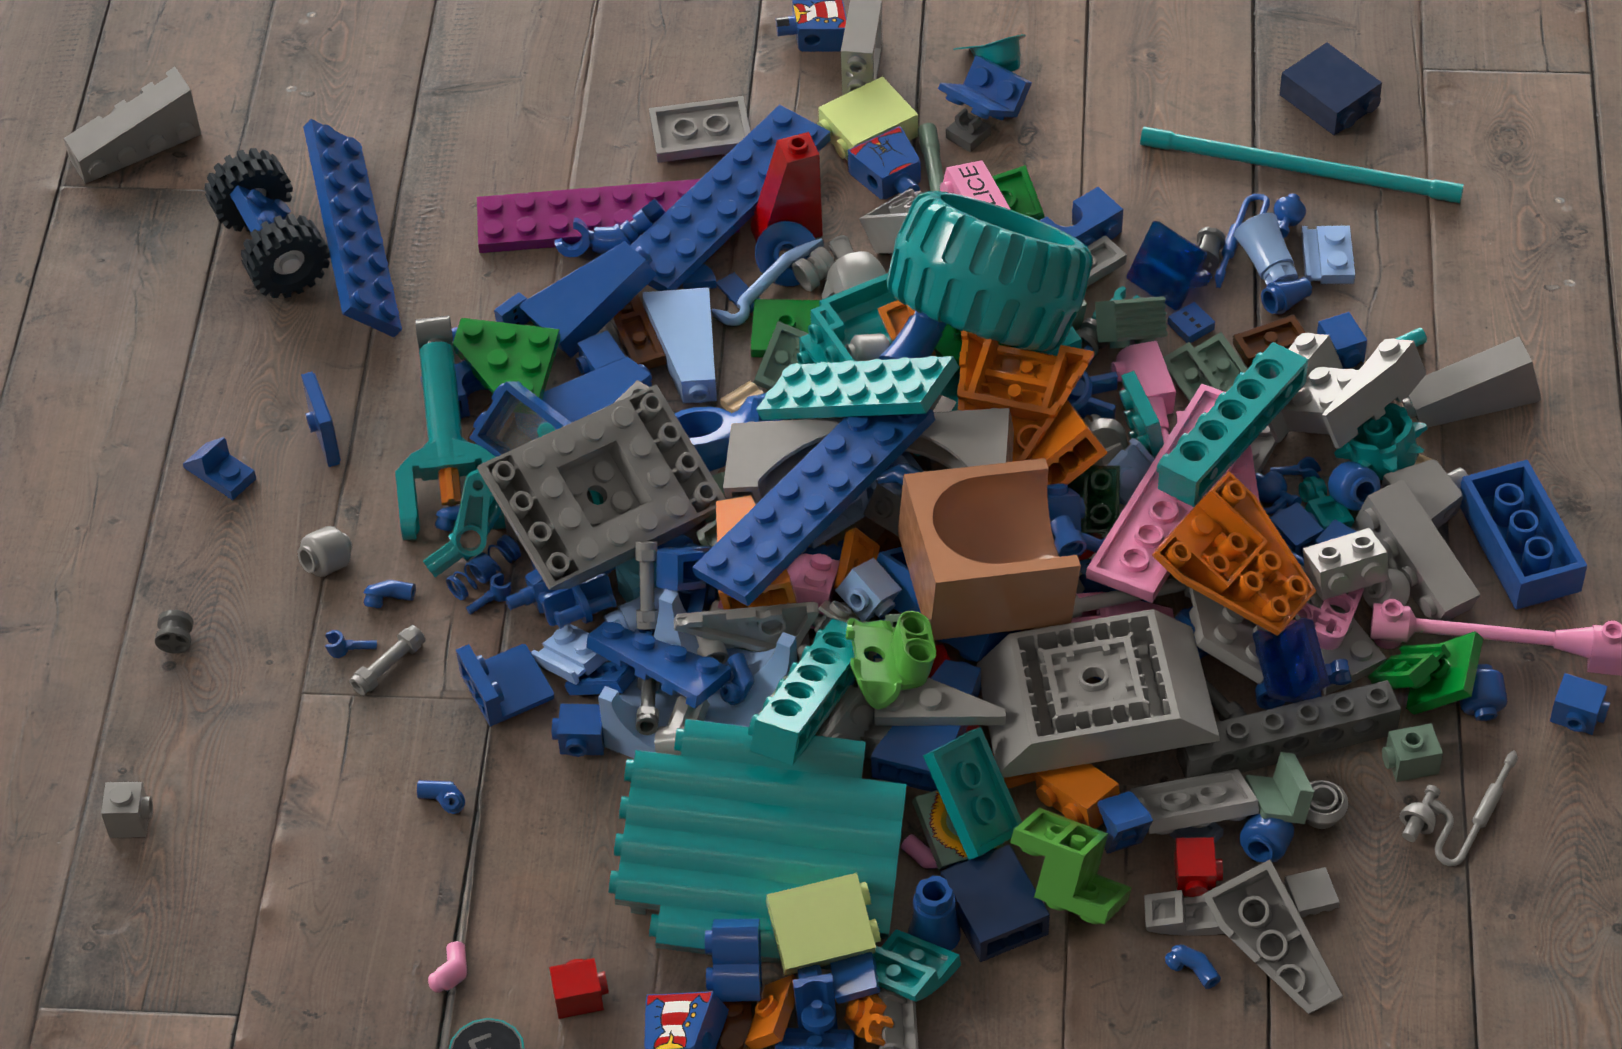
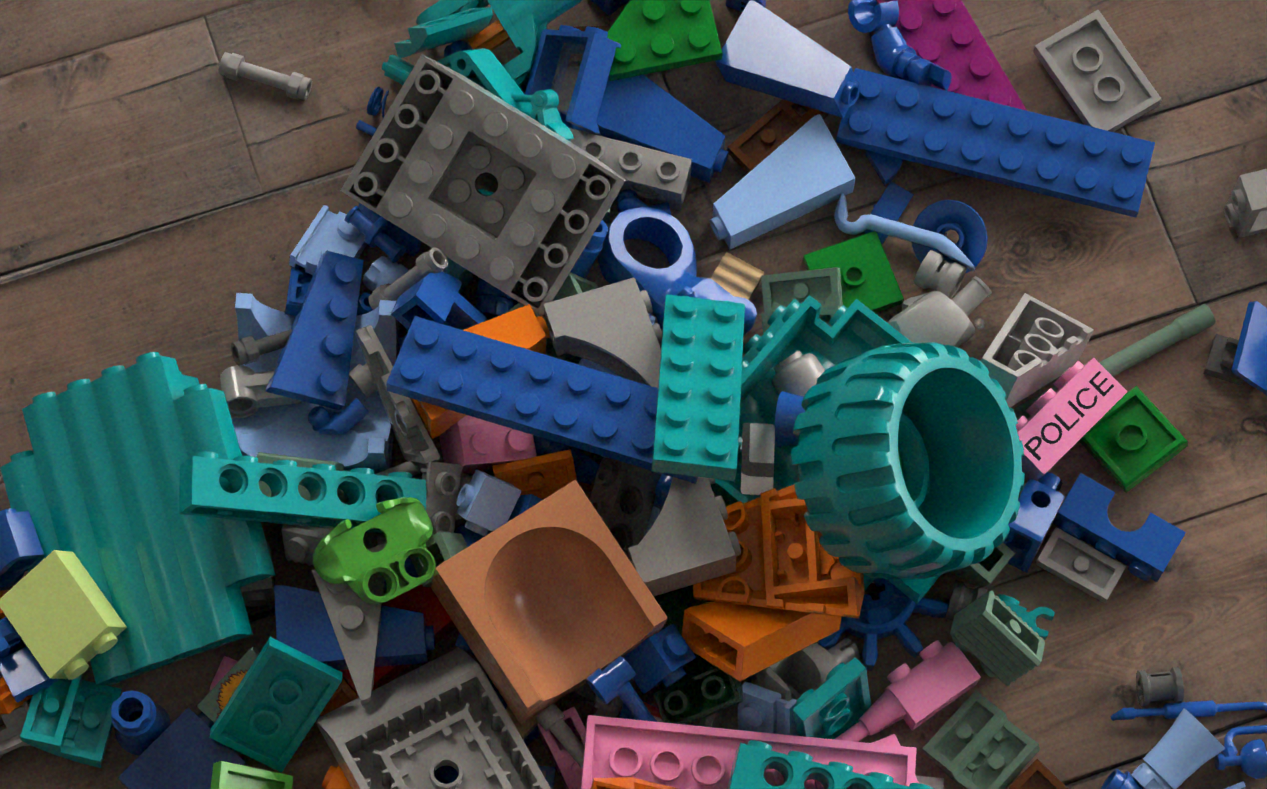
camera: 65 degrees right, 20 degrees up
(340, 646) = (270, 28): blue hand -> none
(388, 588) = (341, 29): blue arm -> none
(432, 505) = (444, 31): none -> teal slope
(444, 792) = (131, 199): blue arm -> none
(504, 683) = (274, 195): blue bracket -> none
(579, 730) = (240, 278): blue brick -> none
(597, 352) = (725, 108): blue brick -> none
(791, 187) = (1012, 210): red slope -> none
(865, 115) = (1184, 245): yellowish green brick -> none
(886, 164) = (1130, 294): blue torso -> none
(1168, 265) = (1107, 653): clear blue bracket -> none
(1191, 322) = (1045, 705): blue tile -> none

